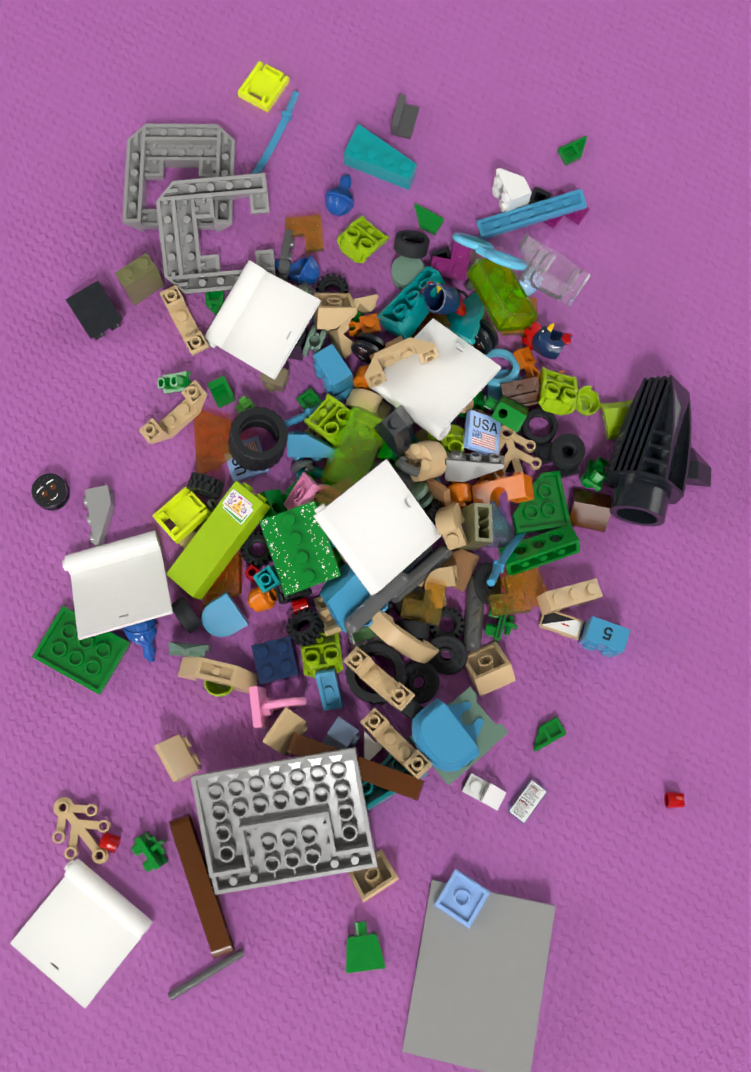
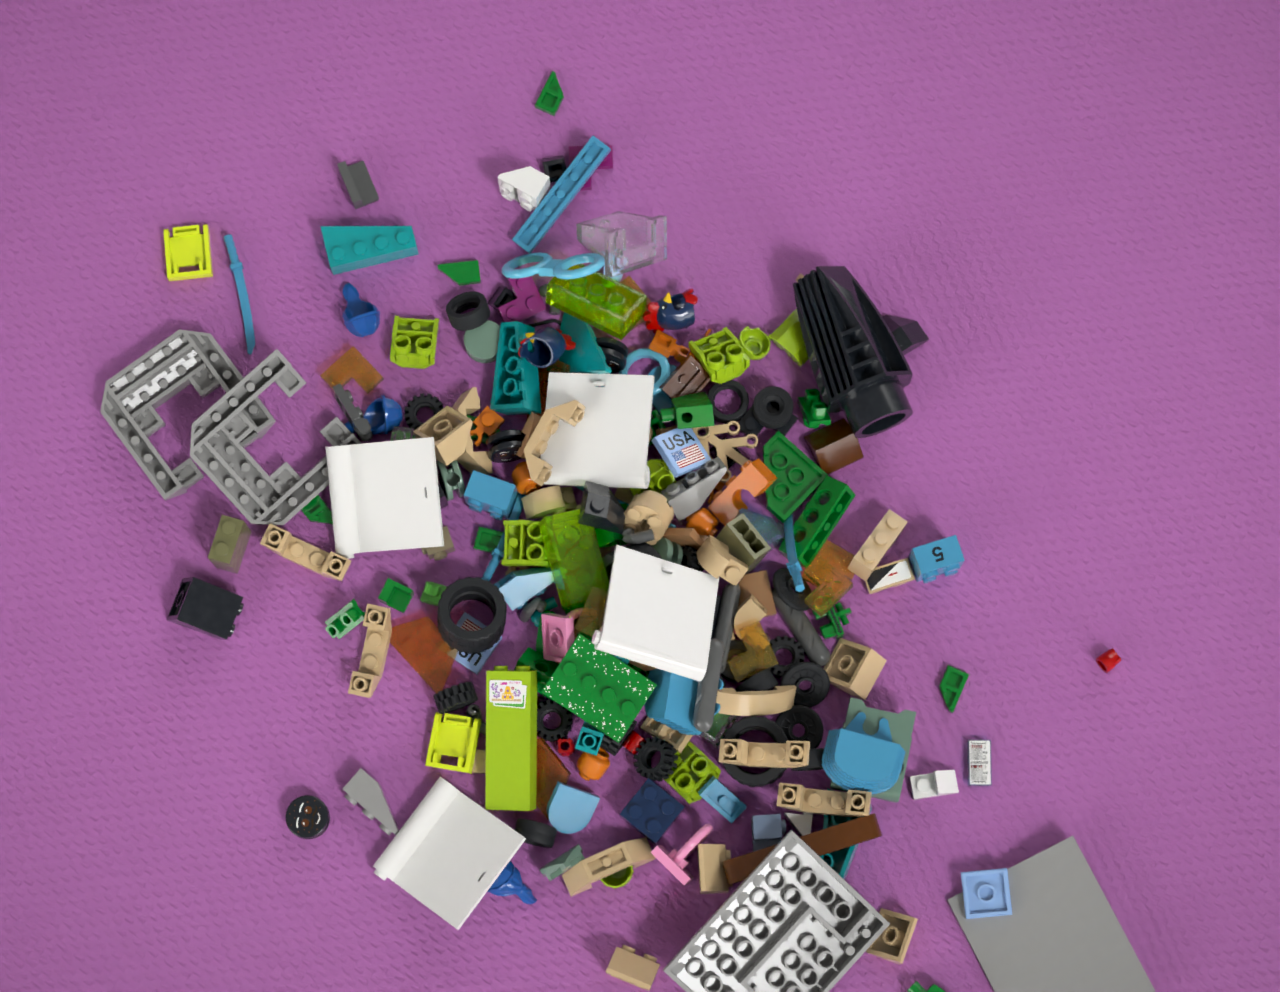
camera: 35 degrees left, 0 degrees up
(84, 660) = (452, 954): green plate -> none

